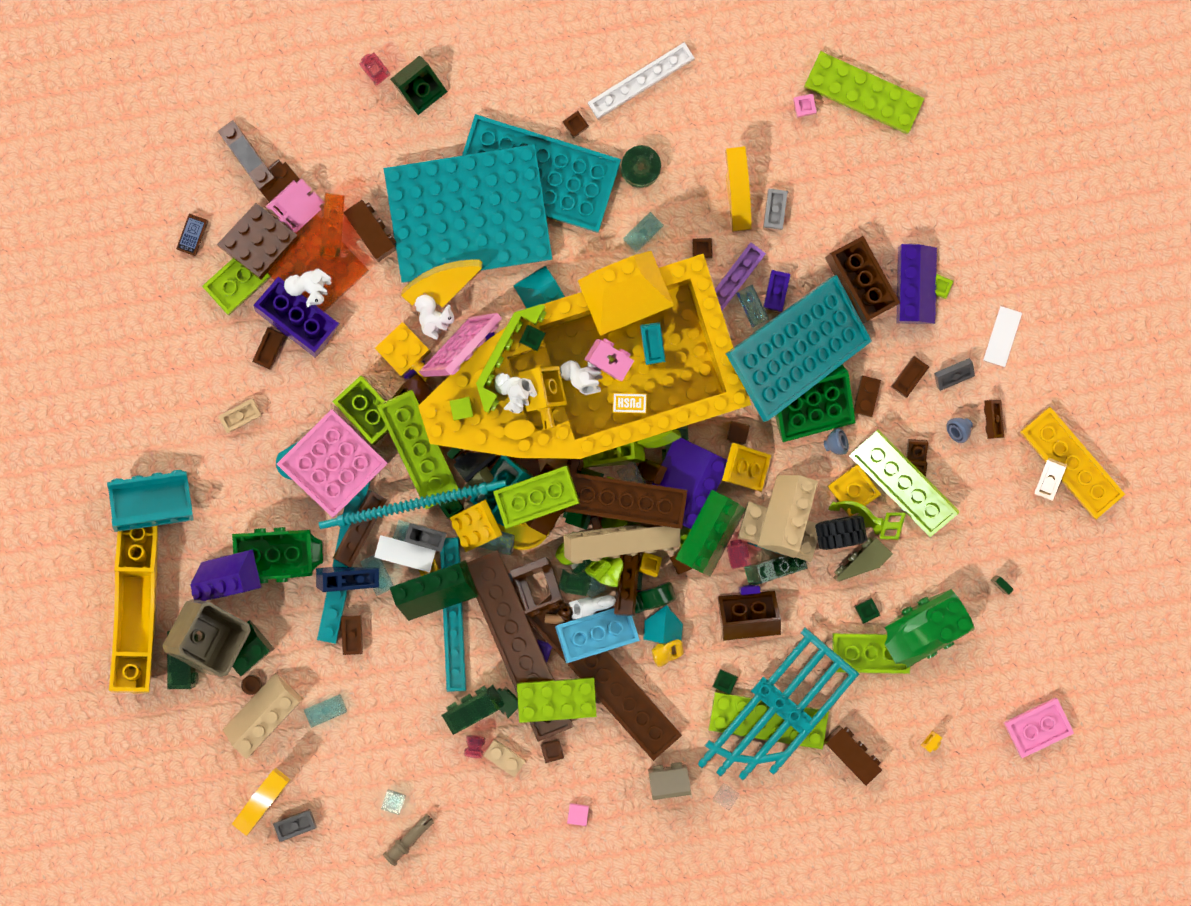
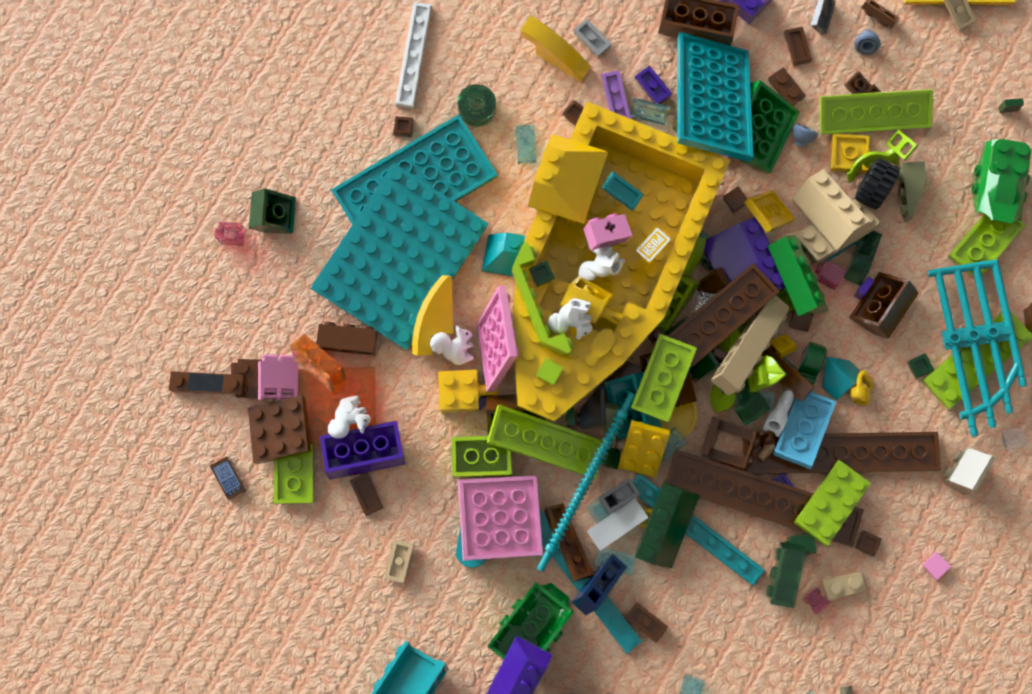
camera: 50 degrees left, 10 degrees down
(867, 610) = (950, 217): dark green tile -> none

